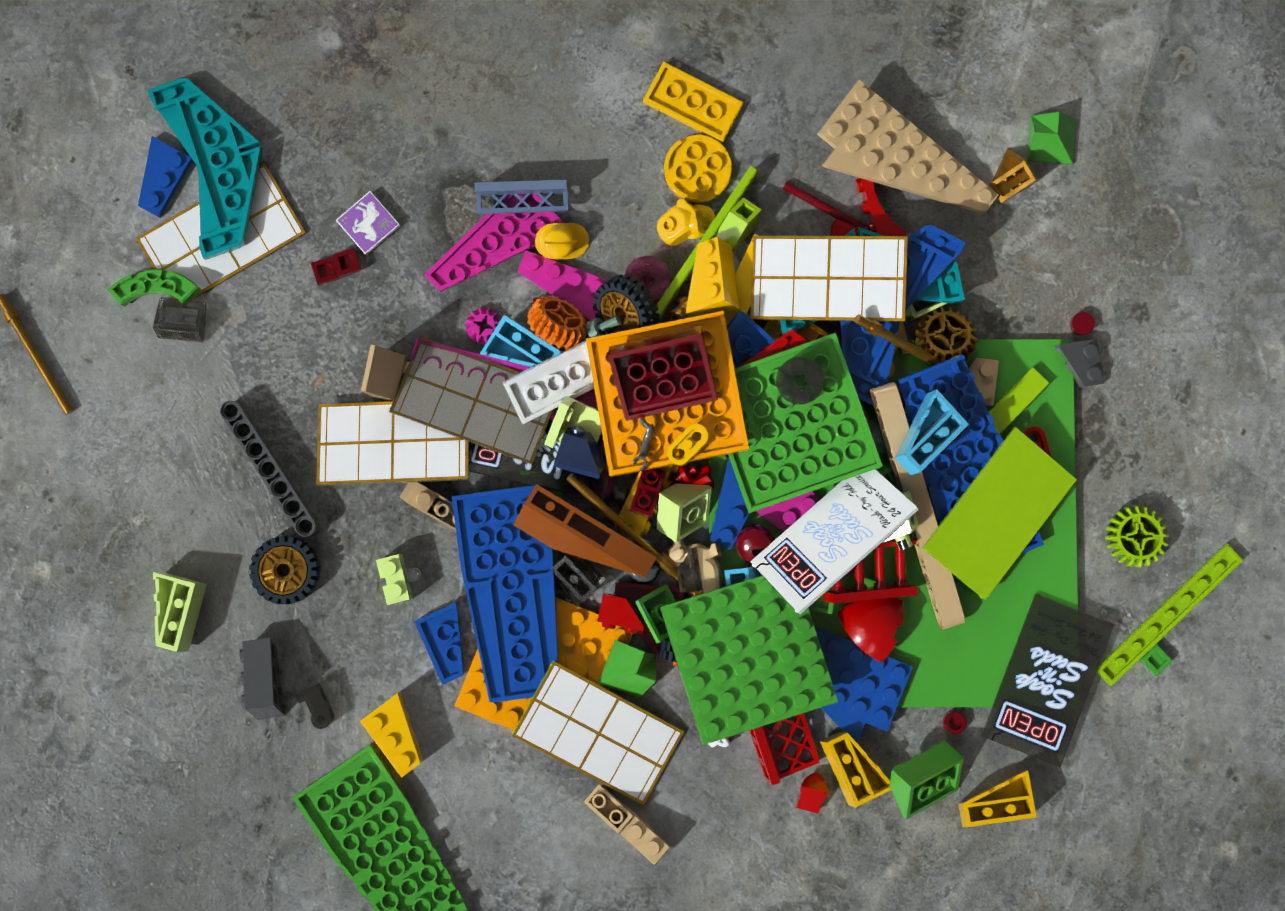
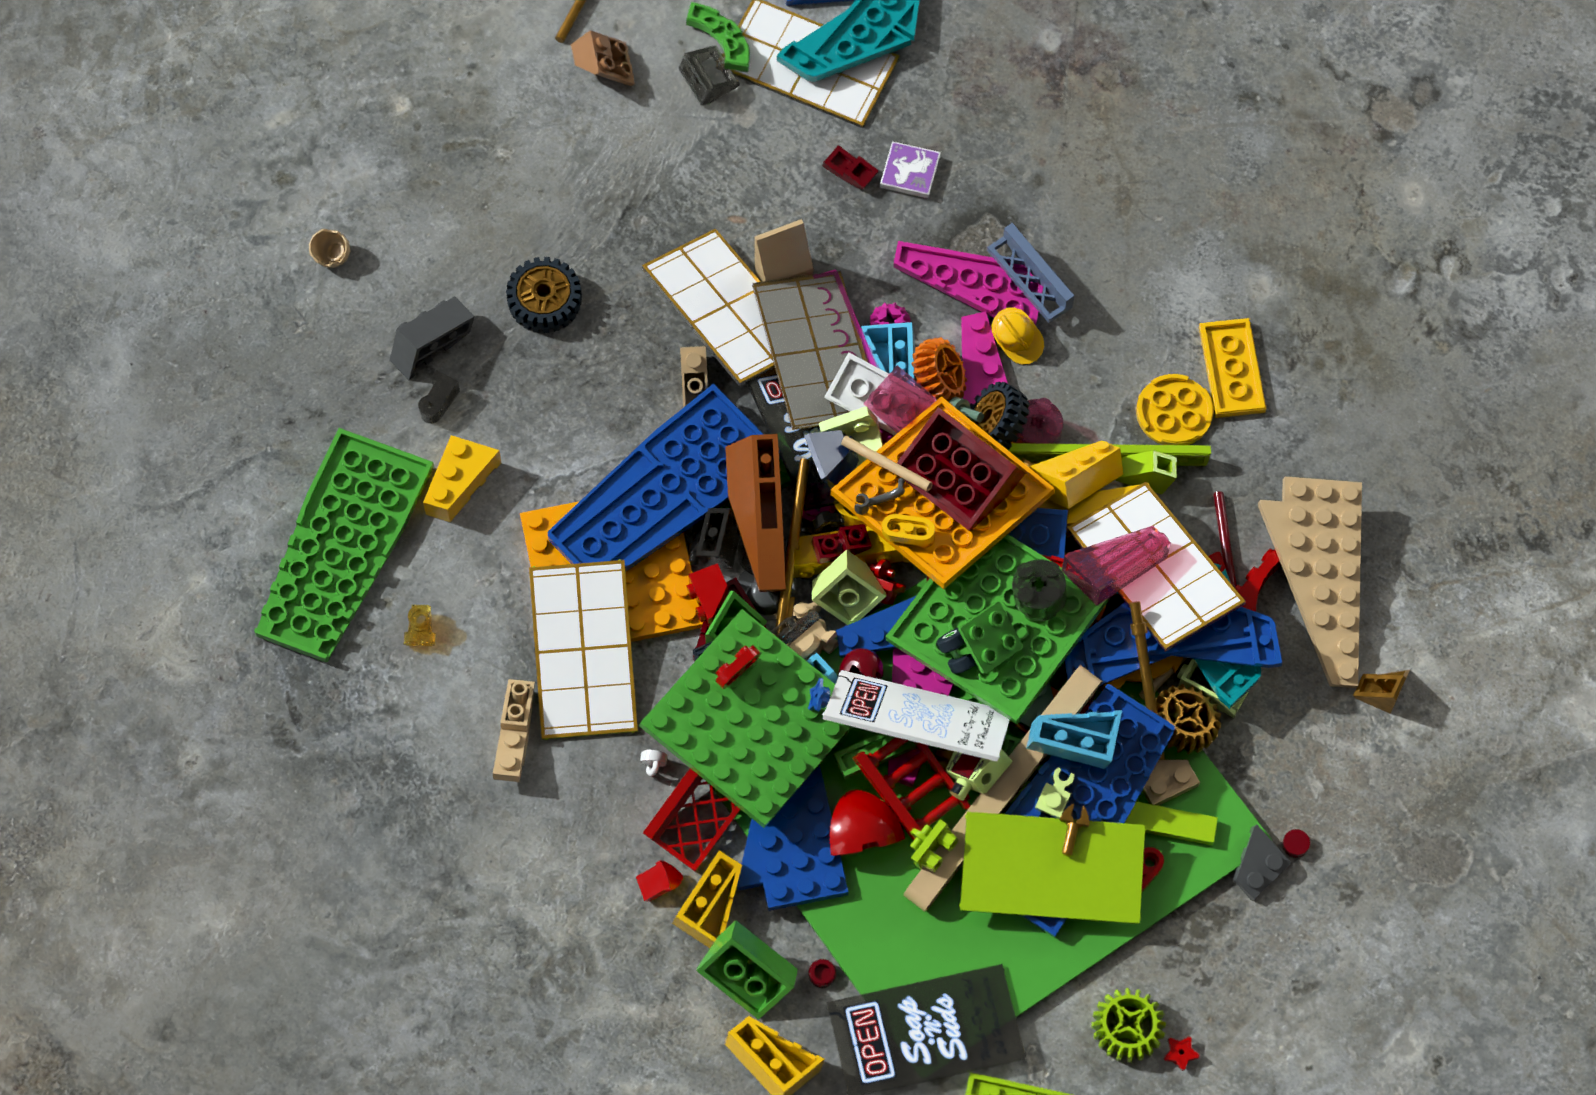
camera: 55 degrees right, 20 degrees down
(112, 391) = (603, 57): none -> medium nougat slope
(133, 709) = (329, 248): none -> tan hair
(177, 610) = (444, 228): yellowish green wedge -> none
(261, 461) = (627, 236): dark grey beam -> none
(397, 578) = (603, 390): yellowish green piece -> none
(443, 642) = (573, 466): blue wing -> none
(499, 842) = (420, 633): none -> clear yellow plate
(568, 373) = (899, 400): none -> clear pink slope
(619, 421) = (887, 463): none -> tan piece
(629, 669) = (662, 639): bright green slope -> none
(684, 222) = (1113, 423): yellow head -> none
(711, 655) = (729, 673): none -> red plate
(770, 598) = (819, 696): none -> blue plate
(812, 451) = (982, 641): none -> bright green plate
(814, 313) = (1115, 563): none -> clear pink slope
(928, 578) = (928, 841): none -> lime hips
(954, 477) = (1053, 797): none -> yellowish green plate
(985, 480) = (1072, 828): none -> pearl gold bar
(1051, 138) = (1450, 701): bright green slope -> none
(1177, 519) = (1174, 1056): none -> red plate

